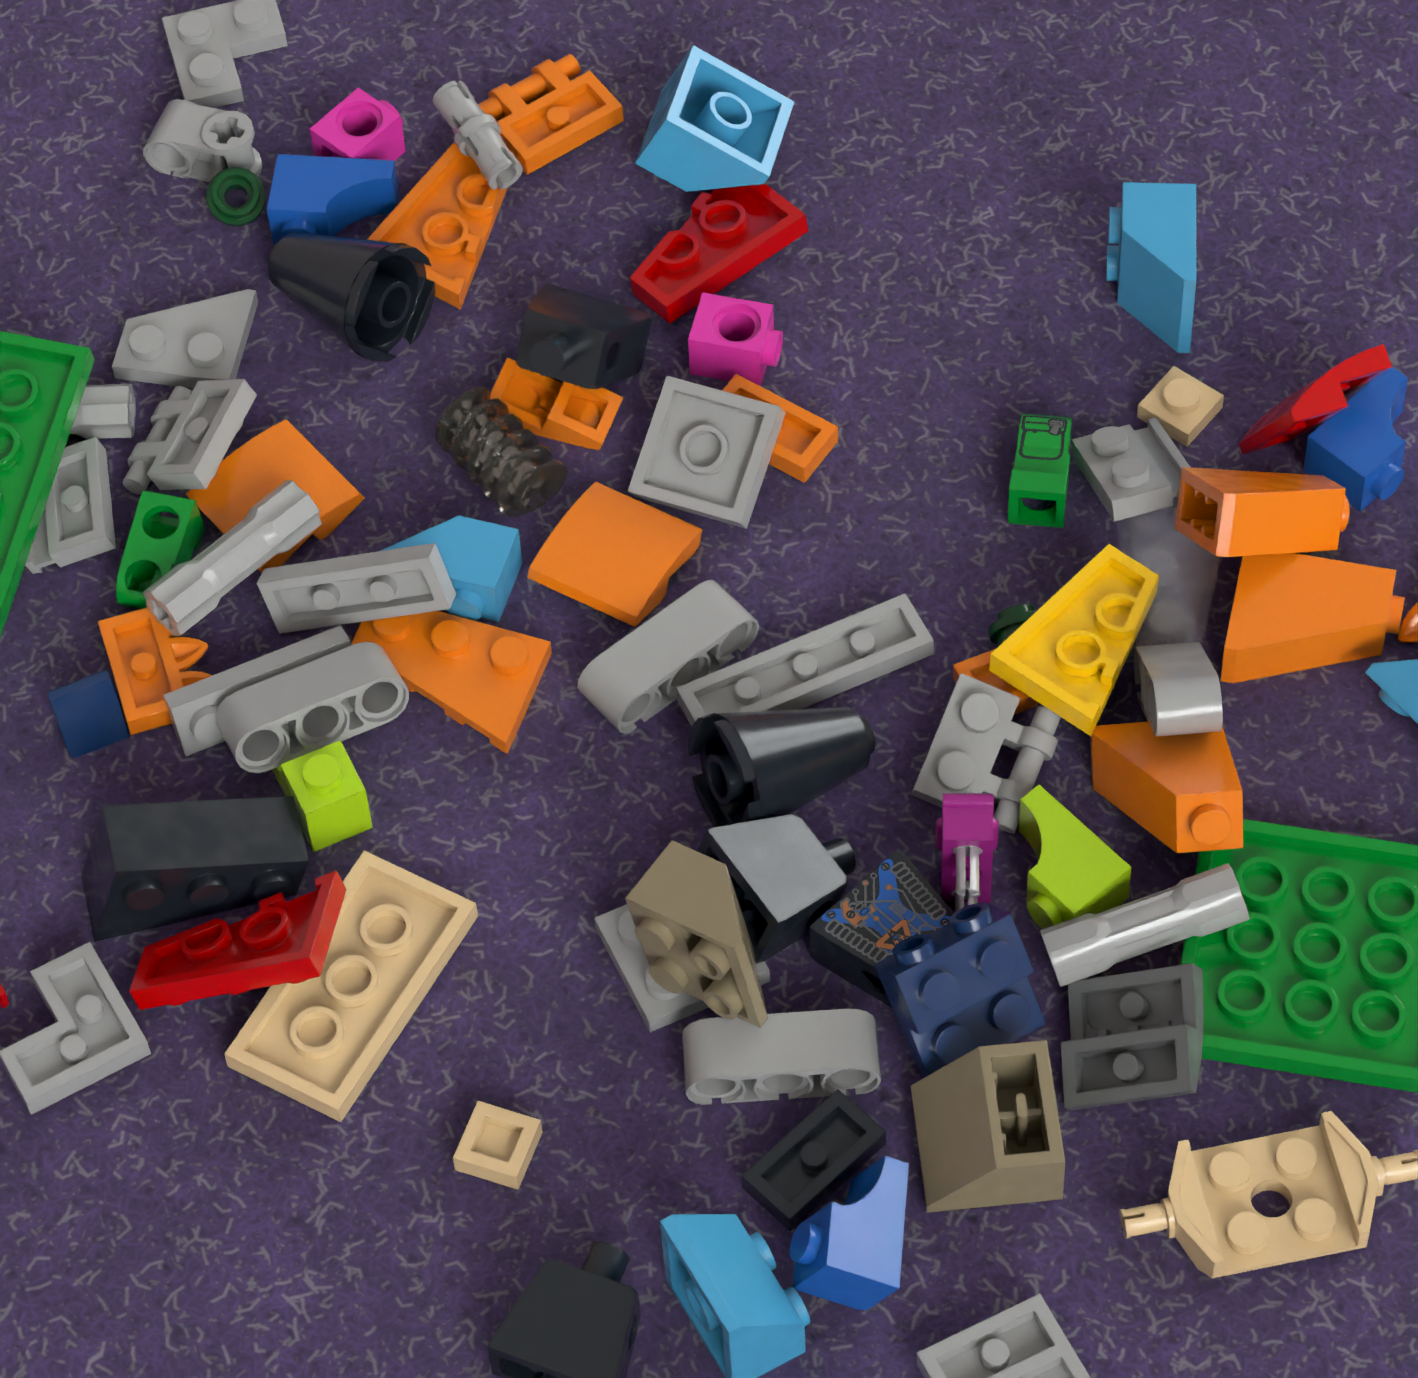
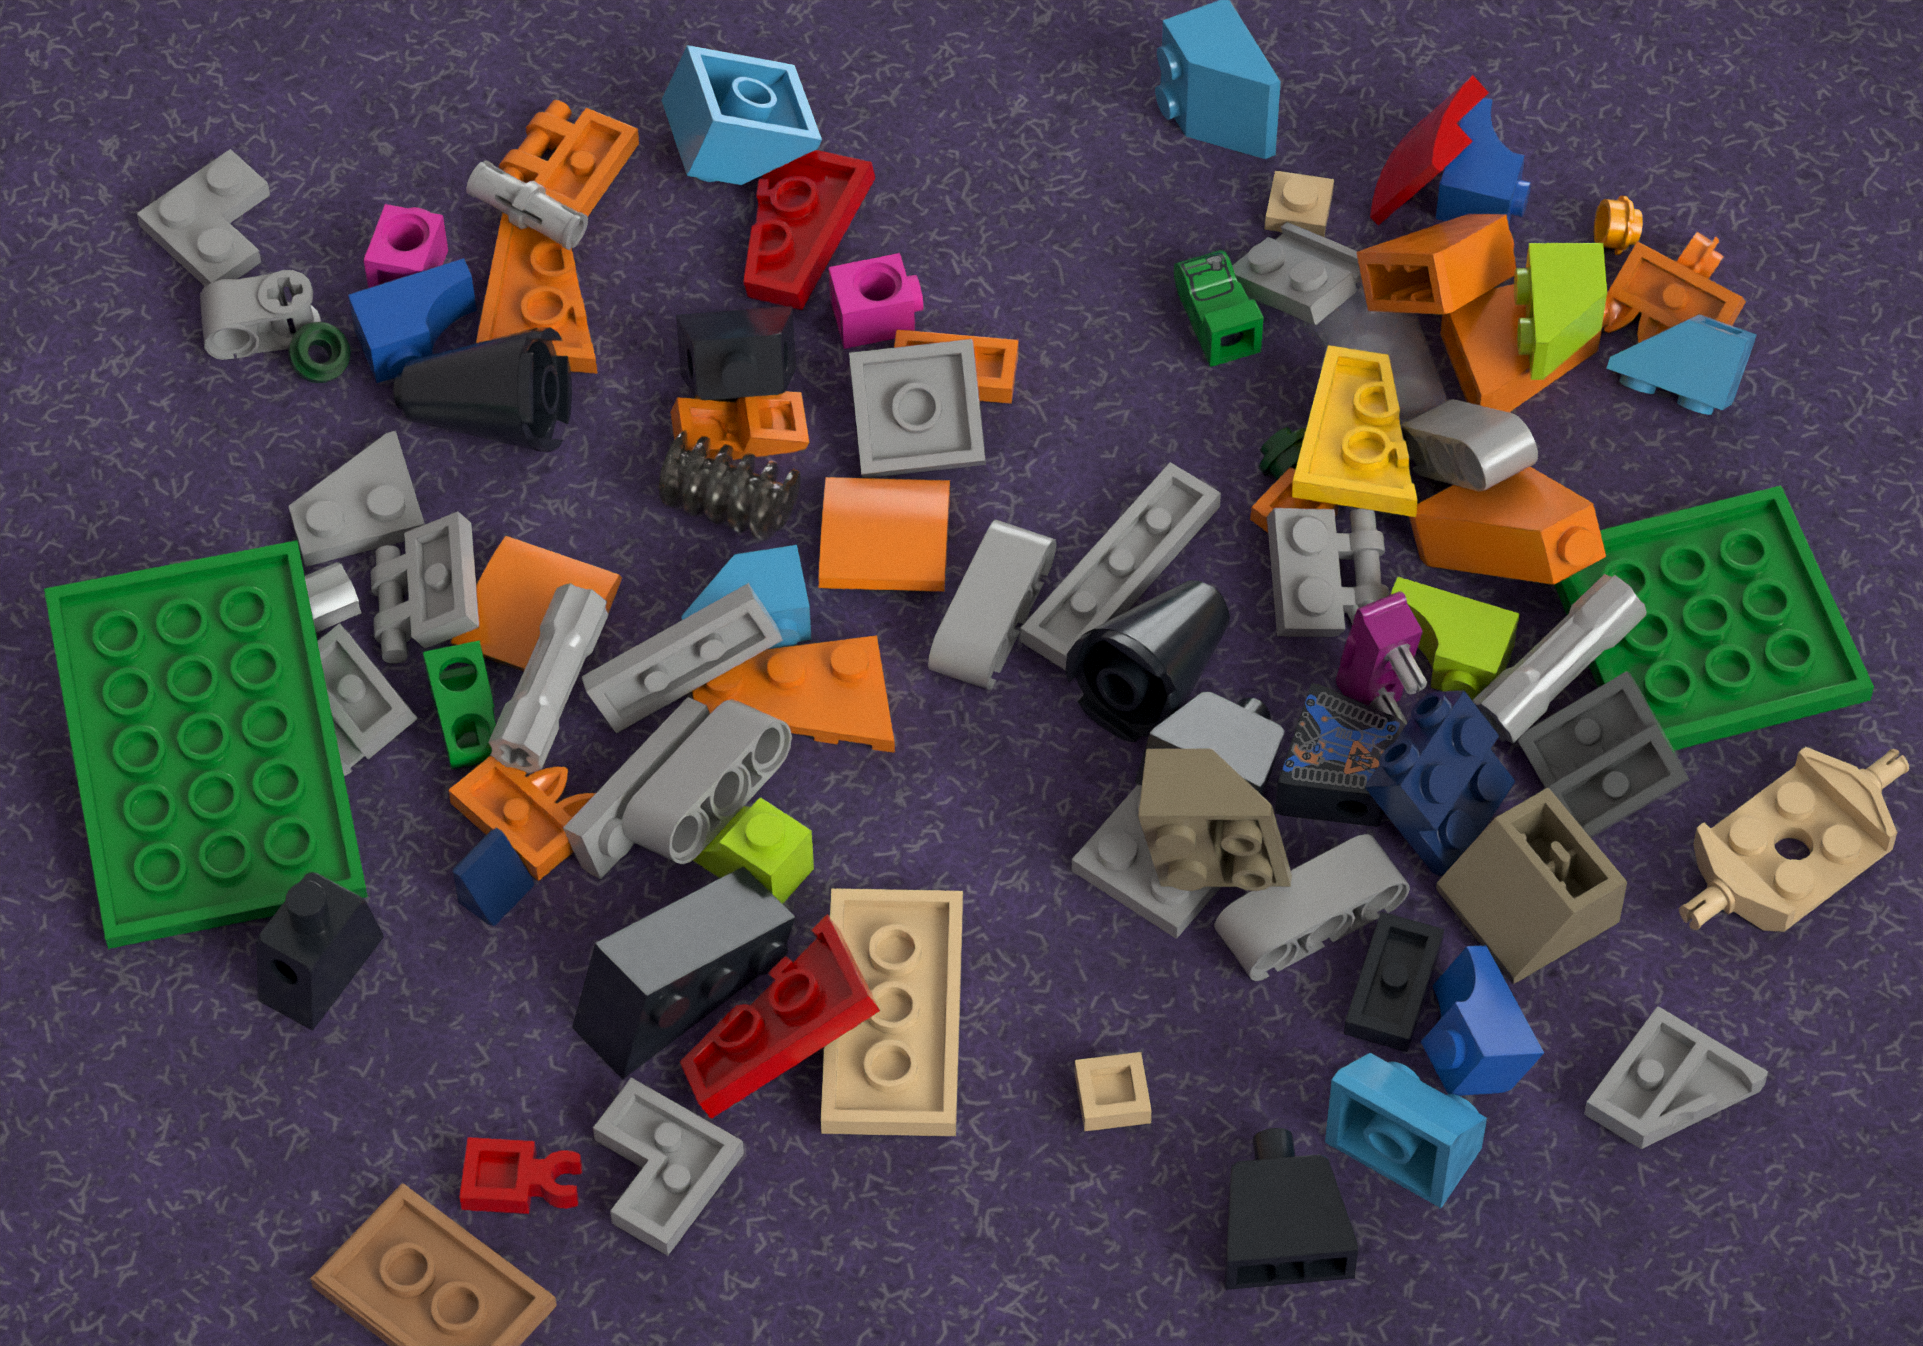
camera: 30 degrees left, 0 degrees up
(1344, 591) = (1563, 302): none -> lime slope

